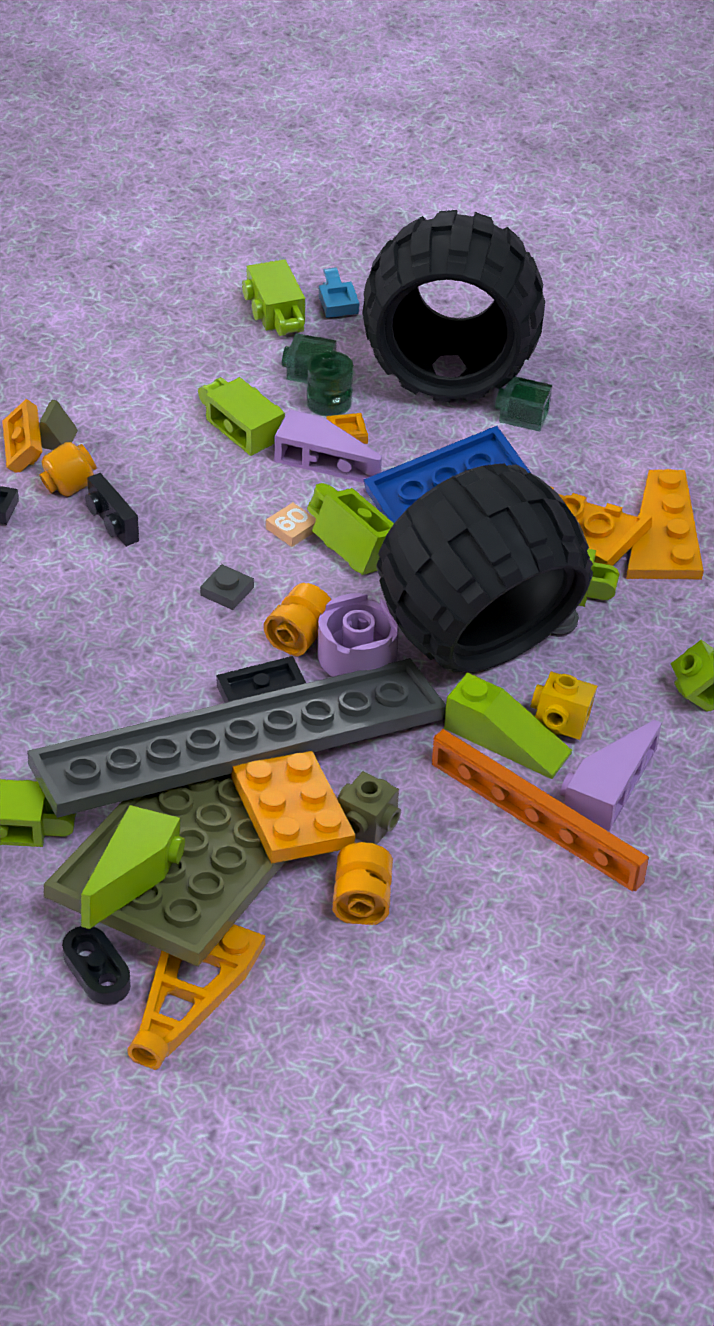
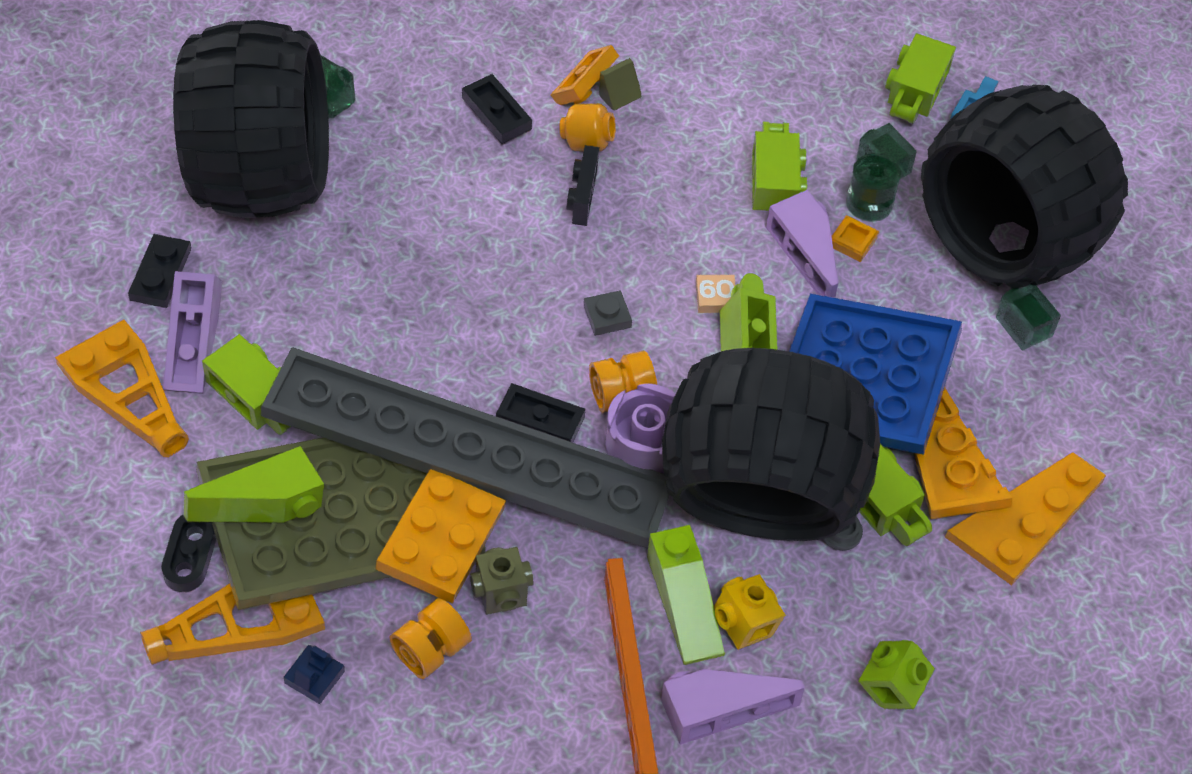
camera: 40 degrees right, 10 degrees up
(297, 976) = (314, 673): none -> dark blue tile

